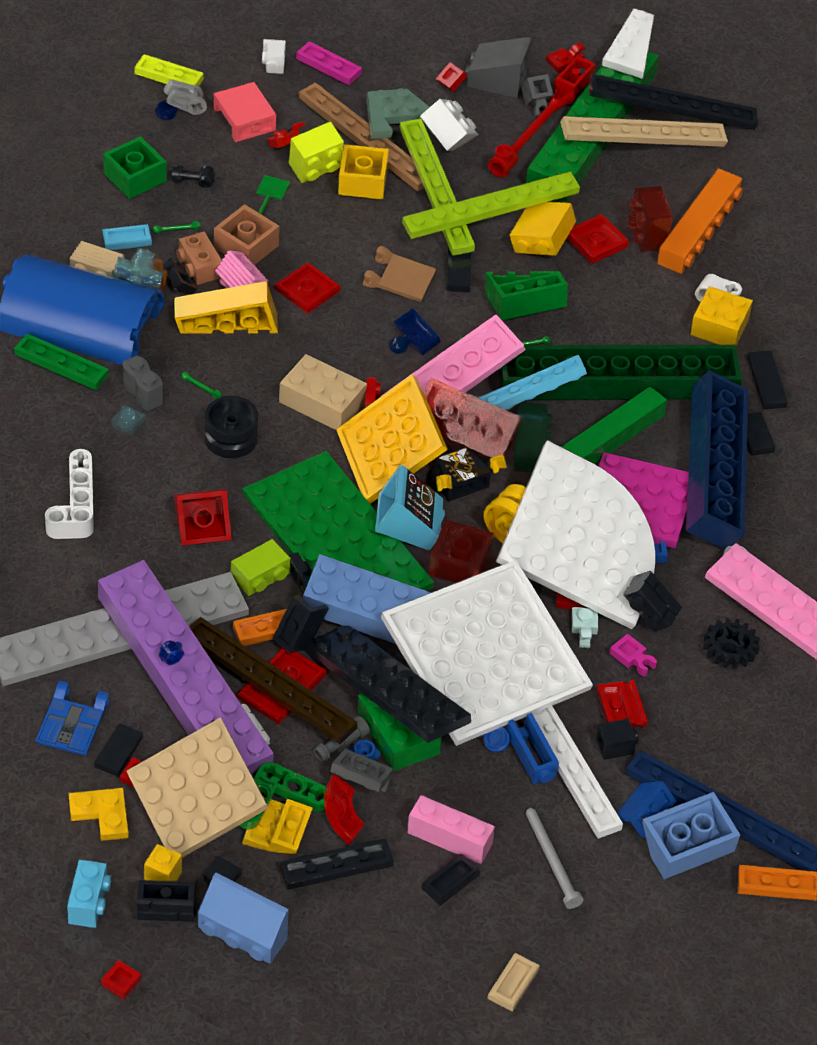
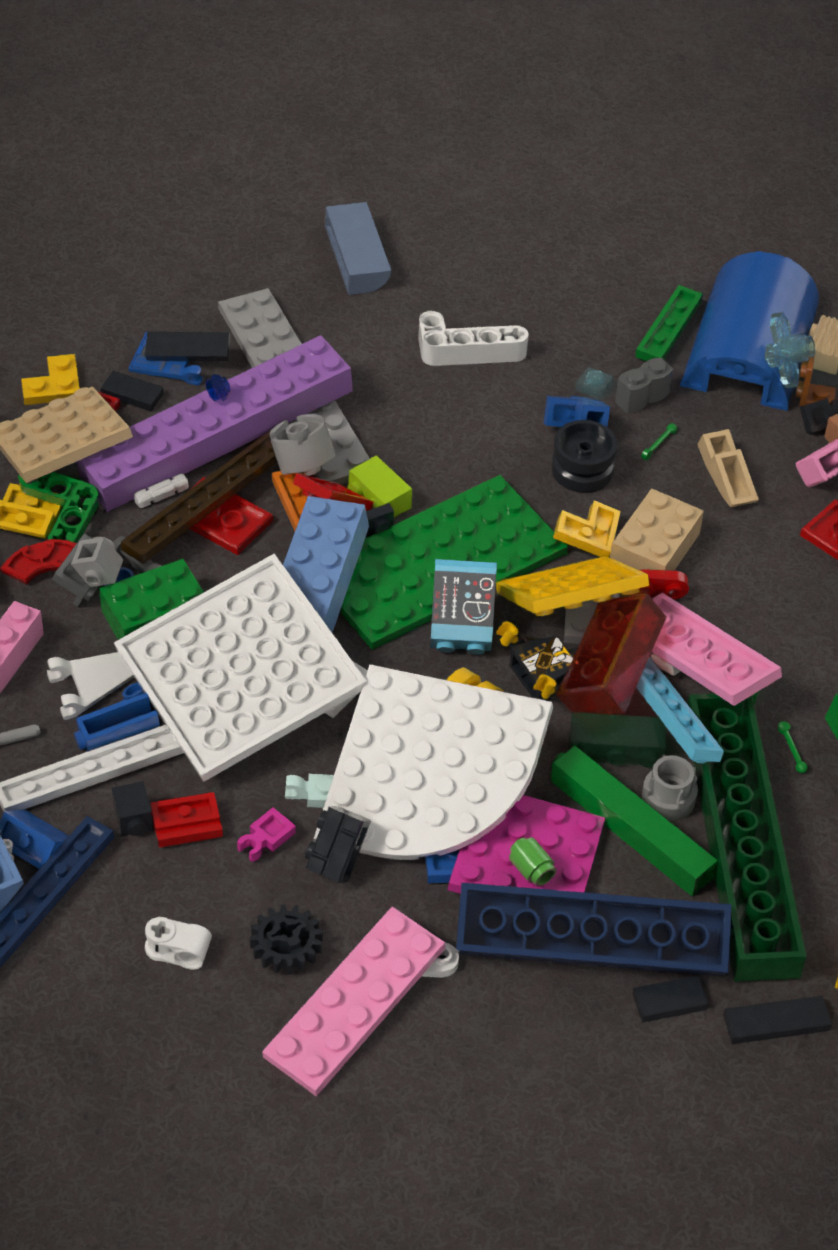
camera: 90 degrees right, 0 degrees up
(73, 699) = (187, 346): none -> black tile
(181, 422) = (566, 410): none -> blue brick
(203, 516) = (453, 440): red slope -> none
(227, 310) = (772, 453): yellow wedge -> none
(229, 603) = (302, 445): none -> light grey brick
(240, 343) = (727, 468): none -> tan slope
(277, 591) = (329, 490): none -> red plate
(299, 624) = (282, 511): black panel -> none
(315, 433) = (590, 535): none -> yellow plate
(375, 746) = (97, 561): none -> light grey brick
(388, 683) = (174, 577): black plate -> none
(415, 332) = (776, 632): clear blue plate -> none
(460, 552) = (411, 649): clear red brick -> none
(472, 770) = (93, 677): none -> white flag
(577, 409) = (671, 787): none -> light grey piece
(664, 484) = (532, 861): none -> bright green brick
(741, 709) = (179, 945): none -> white piece

